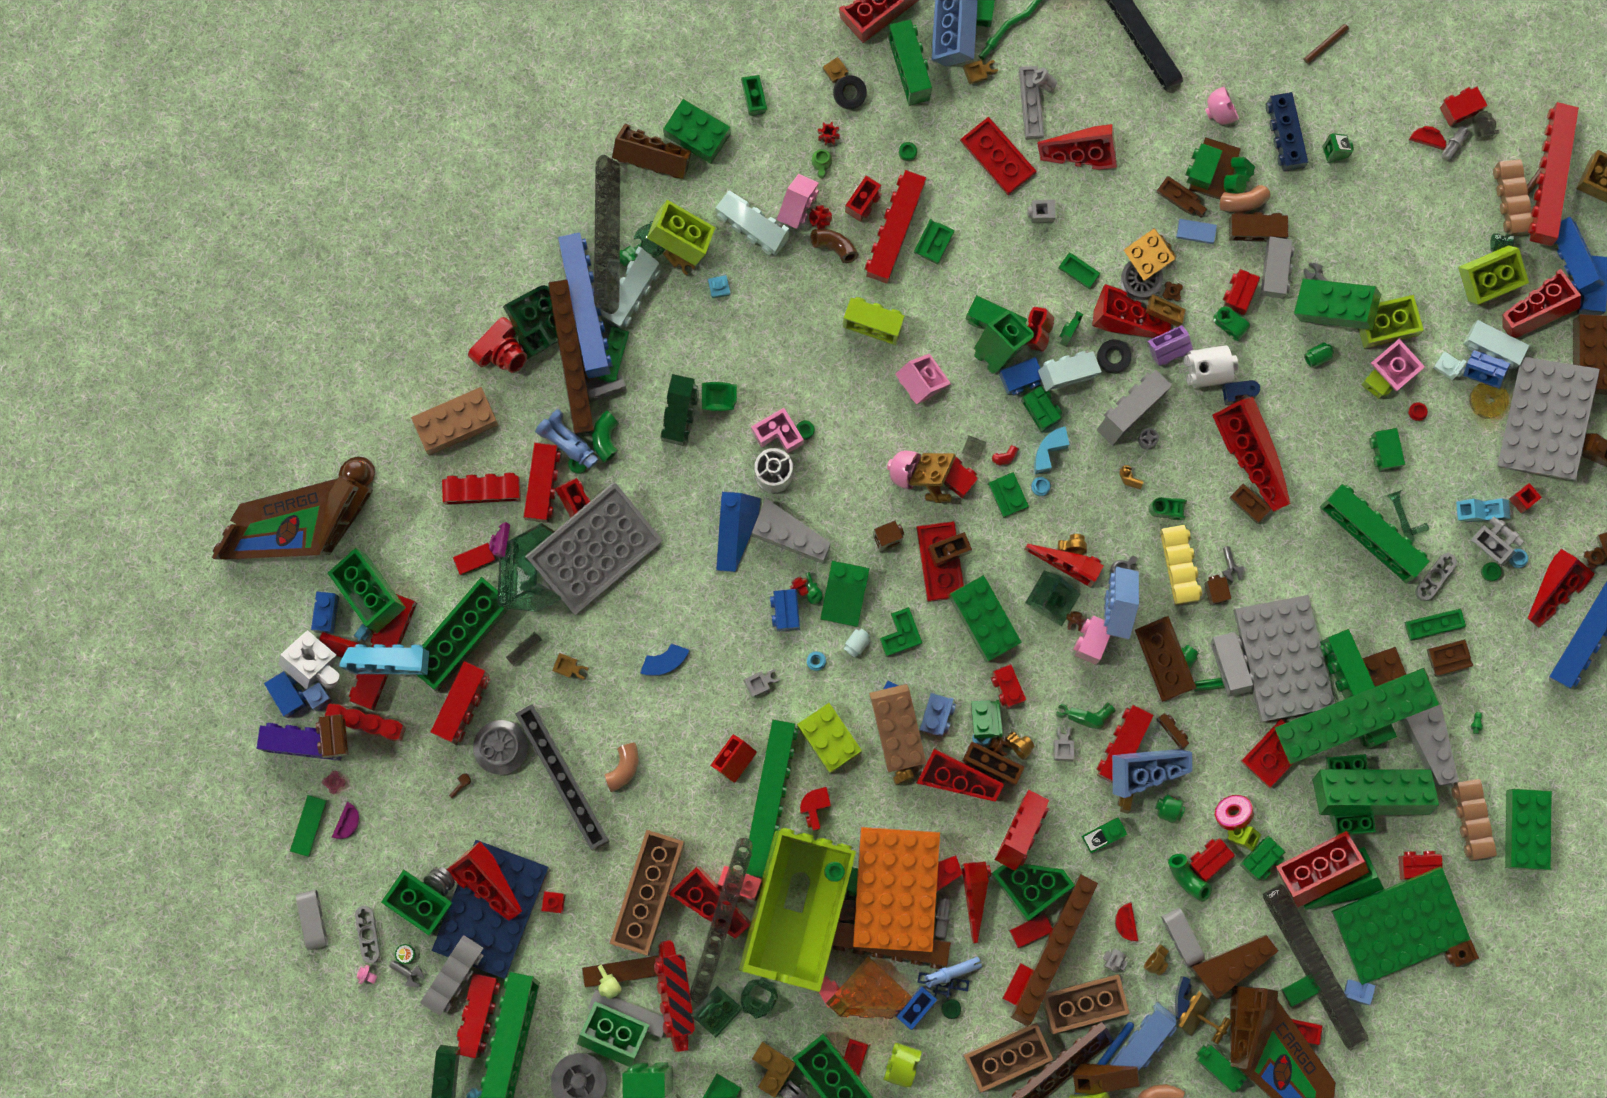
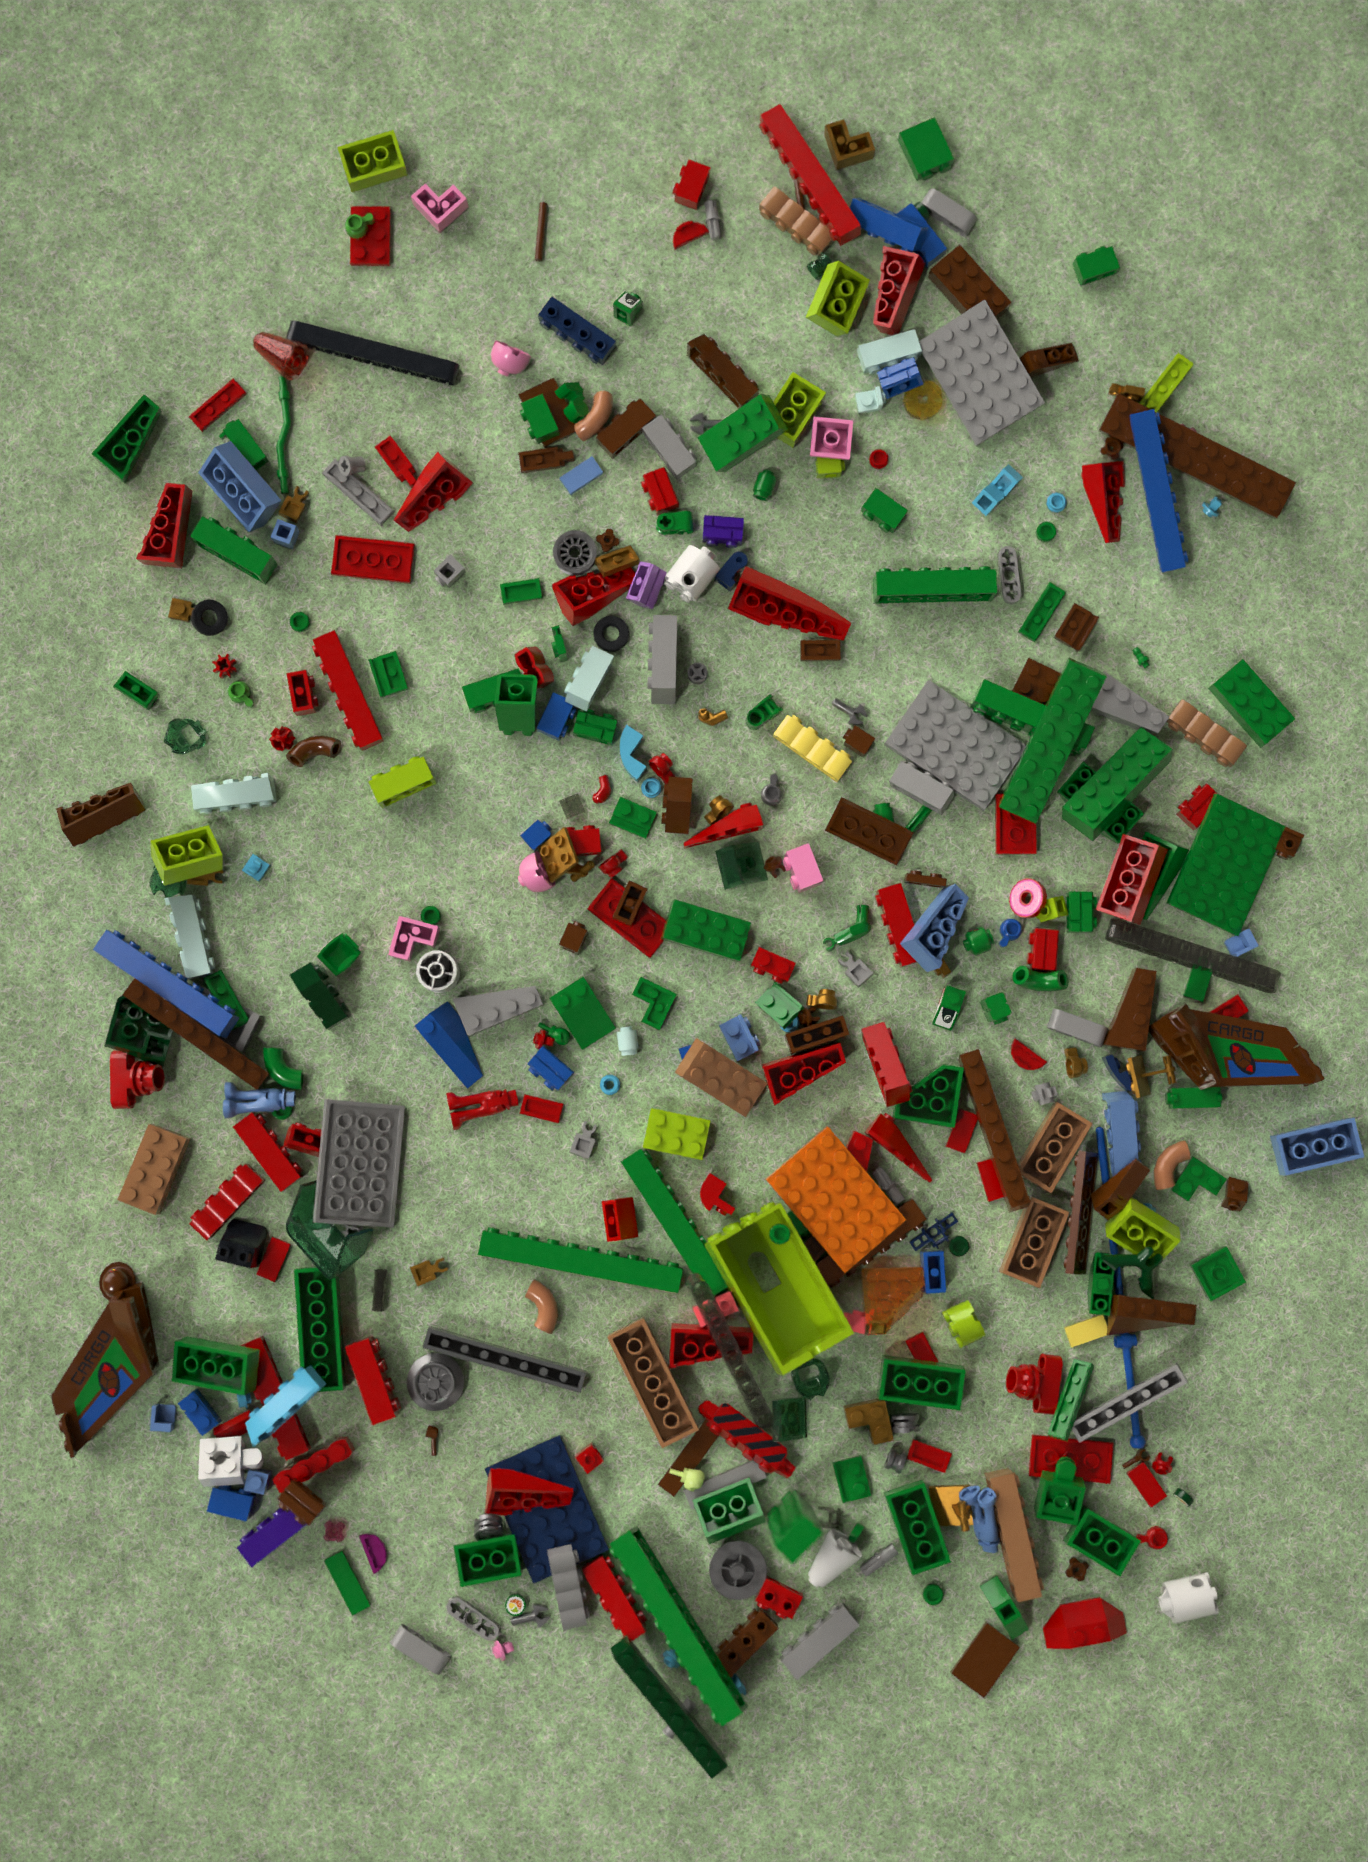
camera: 50 degrees left, 5 degrees up
(297, 592) = (162, 1417): none -> medium blue panel
(463, 527) = (242, 1244): none -> black hips
(499, 541) = (280, 1228): magenta tile -> none
(607, 234) = (129, 911): clear smoke beam -> none
(628, 254) = (161, 911): green piece -> none
(665, 662) = (497, 1195): blue tile -> none
(679, 762) = (580, 1261): none -> green brick
(697, 131) = (119, 762): green brick -> none
(723, 595) = (491, 1103): none -> red piece
(748, 153) = (178, 742): none -> clear green helmet
(753, 632) = (541, 1108): none -> red tile
(797, 200) = (251, 742): bright pink brick -> none
(902, 776) = (758, 1109): pearl gold plate -> none
(922, 378) = (482, 790): bright pink slope -> none
(930, 443) = (537, 834): none -> blue brick
(945, 974) = (931, 1226): light blue pin -> none
(954, 84) = (285, 534): none -> medium blue brick
(963, 513) = (612, 864): none -> red piece
(1048, 513) = (678, 805): none -> reddish brown brick
(1065, 478) = (664, 763): none -> red piece
(1078, 105) = (396, 460): none -> red hinge
(1121, 602) = (798, 821): medium blue brick -> none
(1137, 866) = (996, 1008): none -> green brick
(1150, 254) = (564, 527): plate -> none
(1199, 824) = (1010, 931): none -> blue piece
(1259, 358) = (723, 531): none -> dark purple brick
(1363, 247) = (721, 370): none -> reddish brown wedge
(1407, 530) = (957, 559): clear green piece -> none
(1484, 126) = (722, 185): clear smoke brick -> none
(1493, 545) = (1030, 510): light grey brick -> none
(1525, 498) = (1019, 451): red brick -> none

